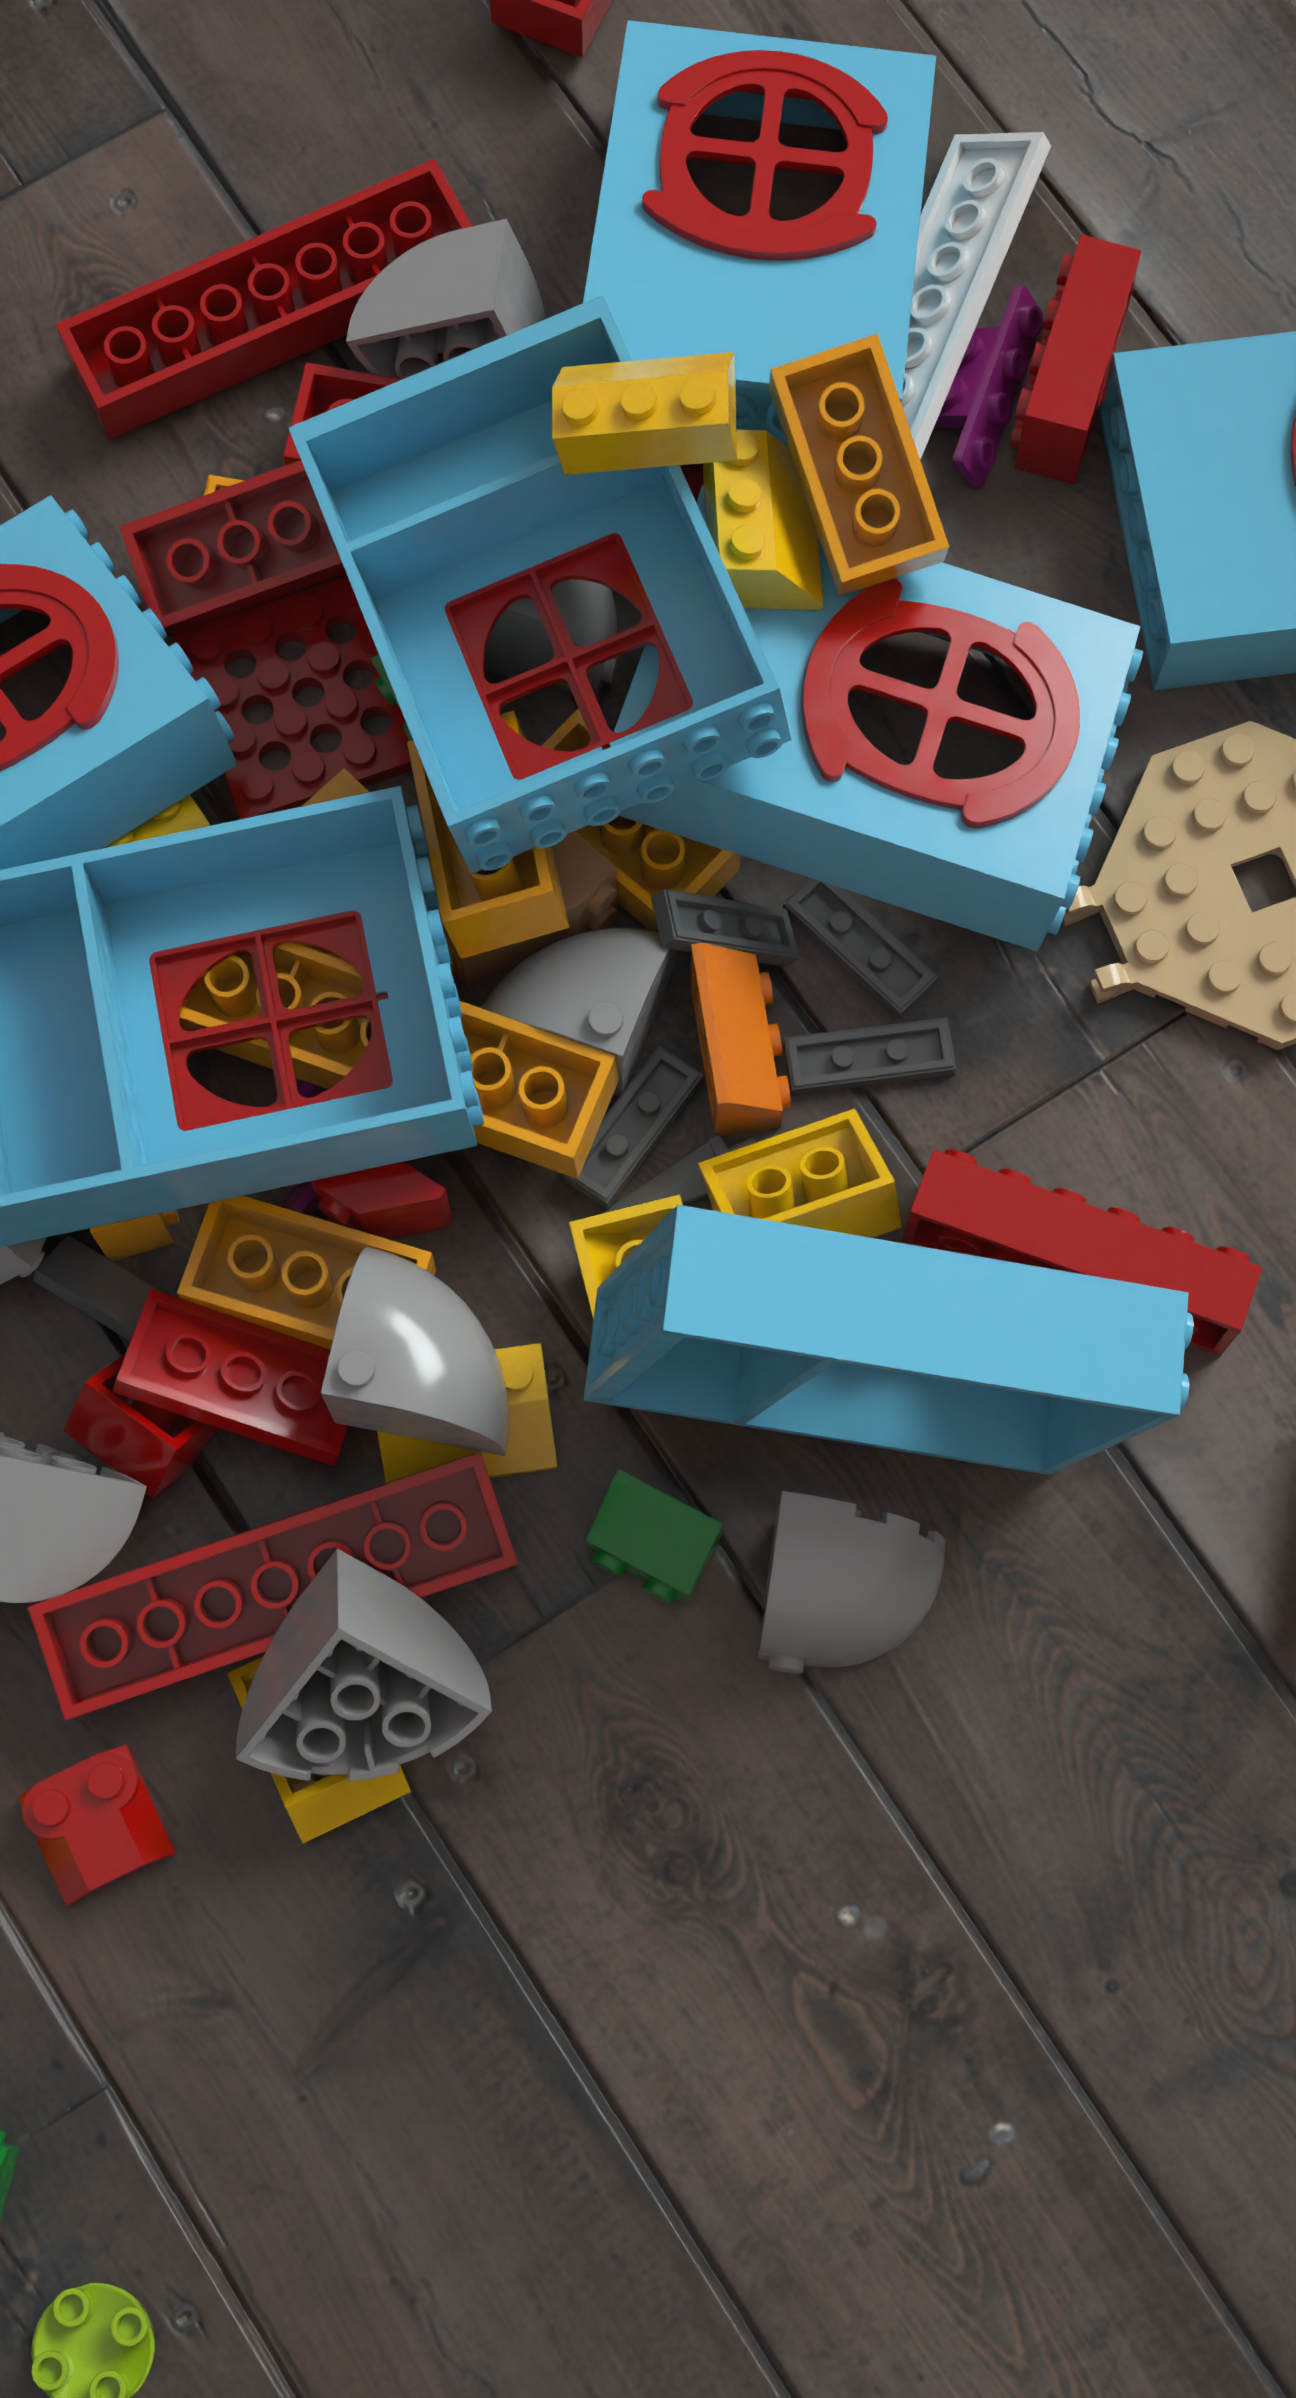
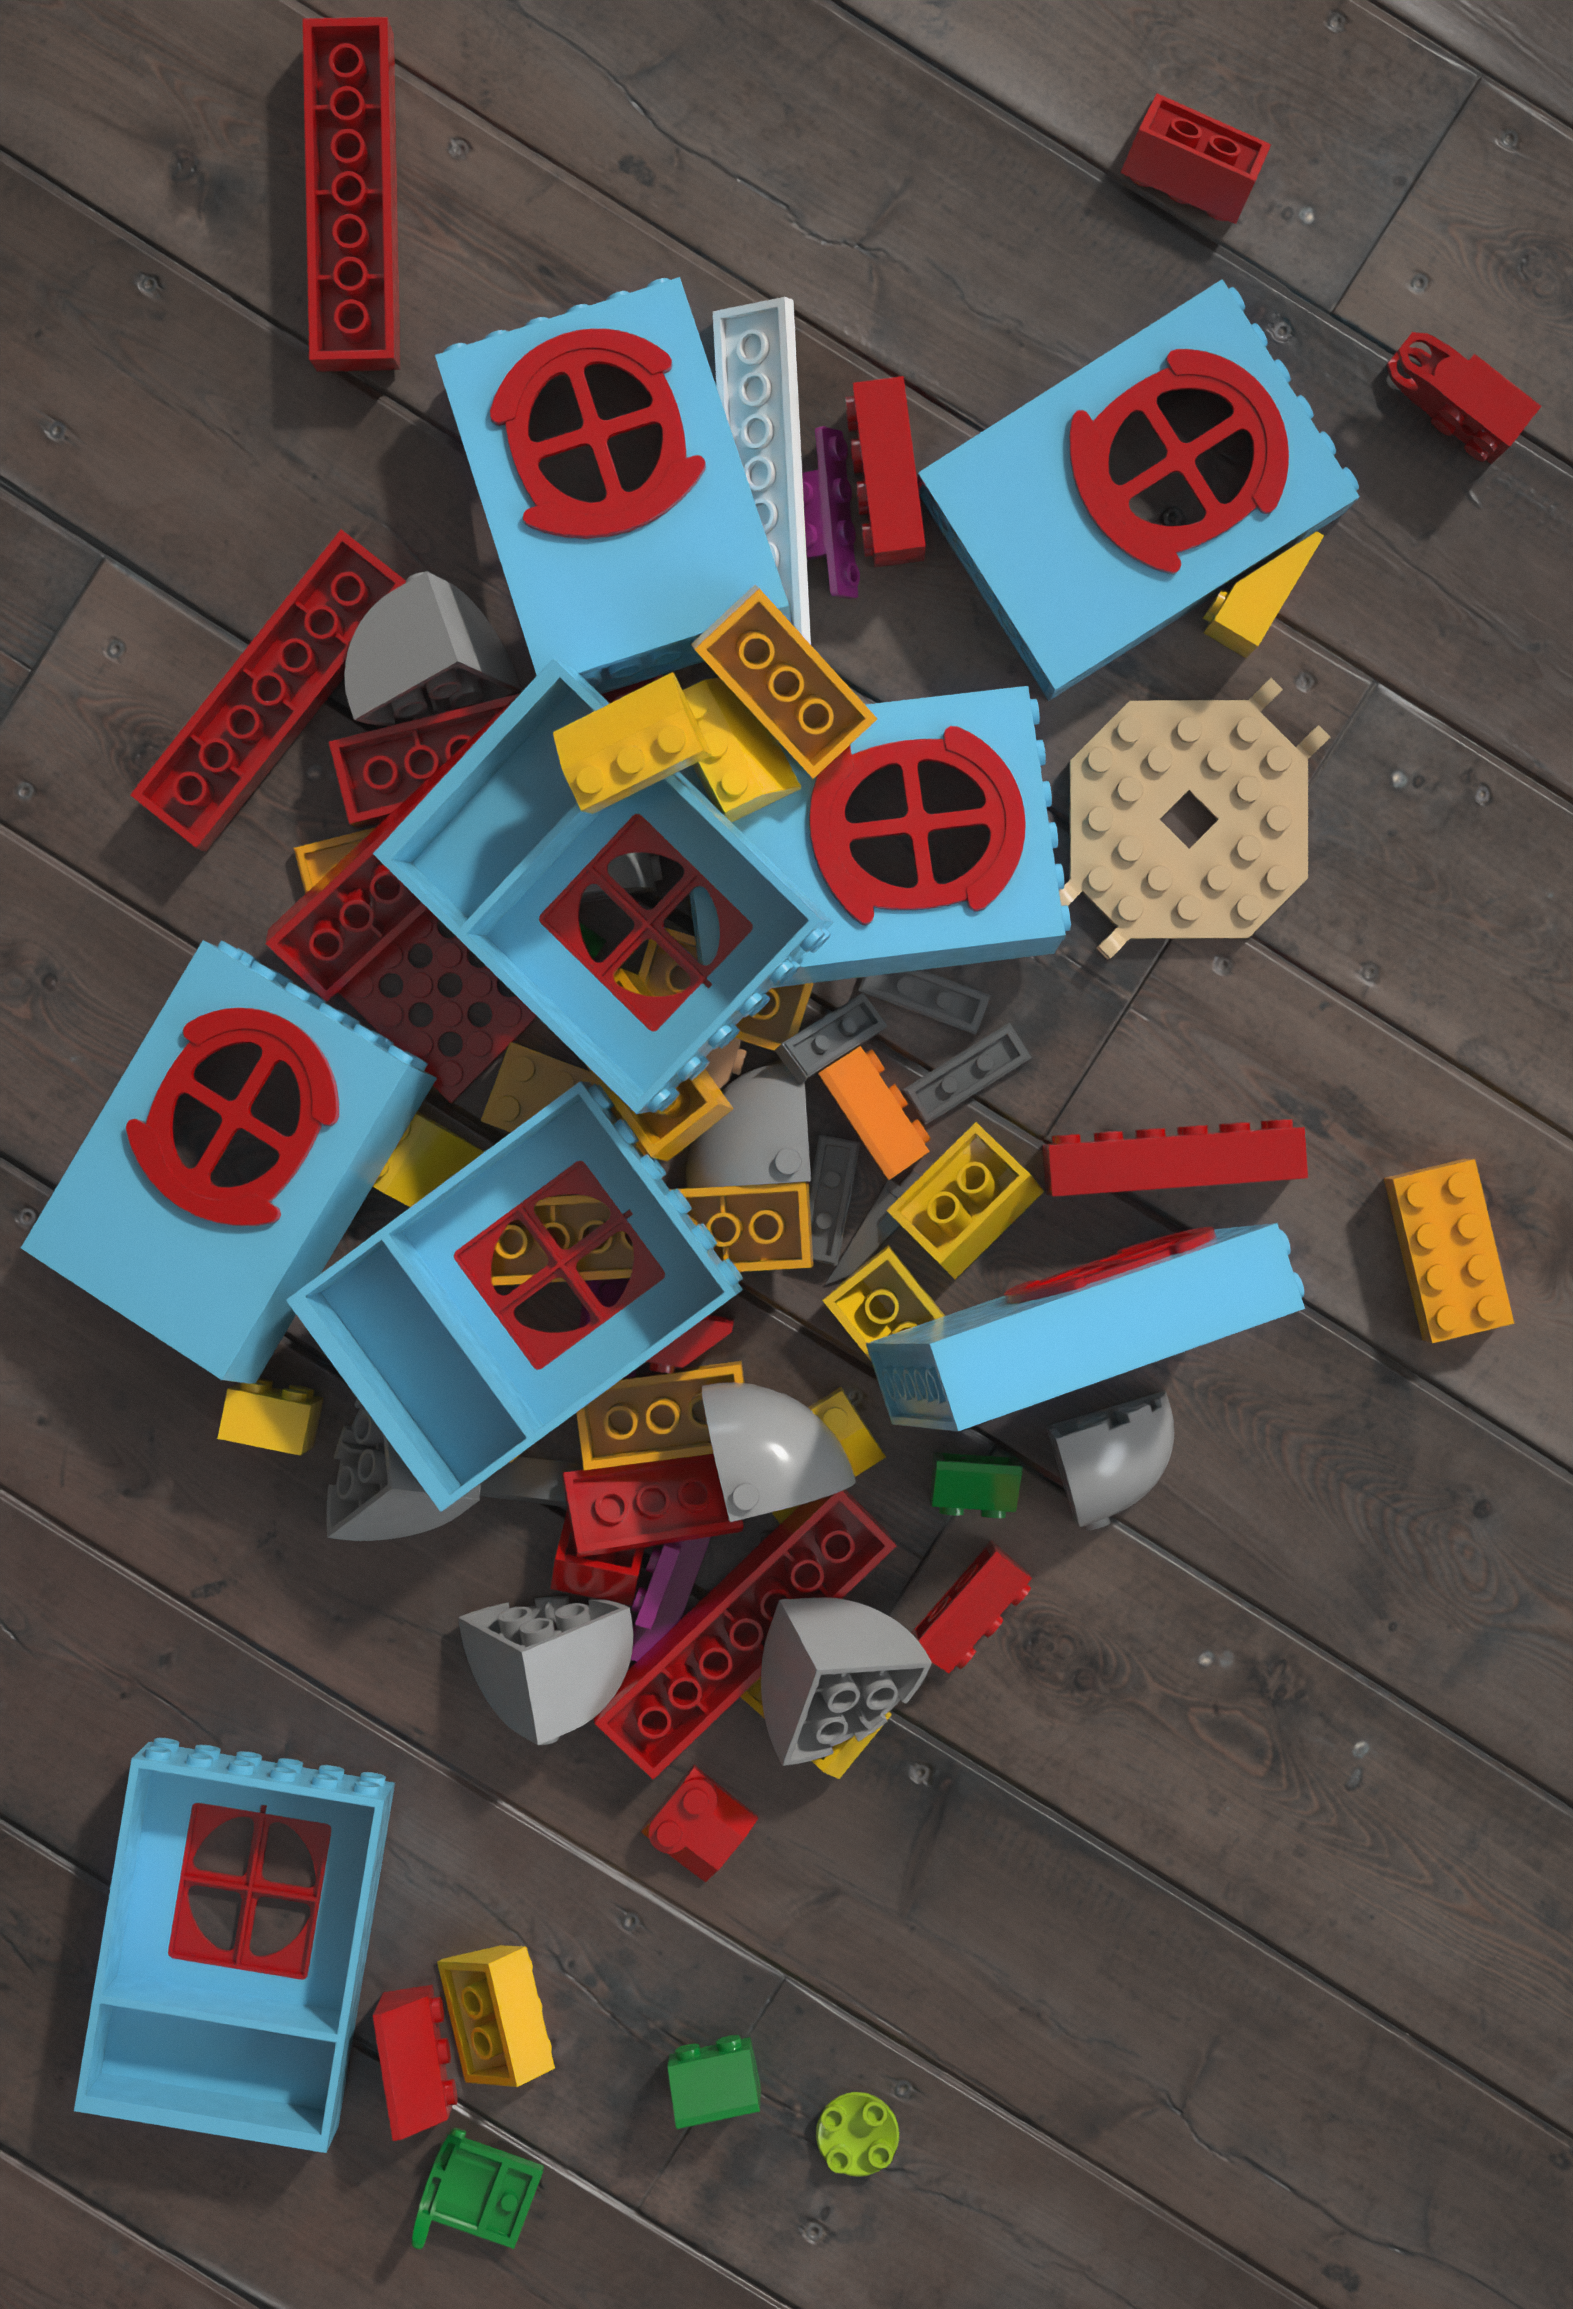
camera: 30 degrees left, 15 degrees up
(206, 1498) = (668, 1592): none -> magenta bracket
(577, 1696) = (972, 1608): none -> red slope

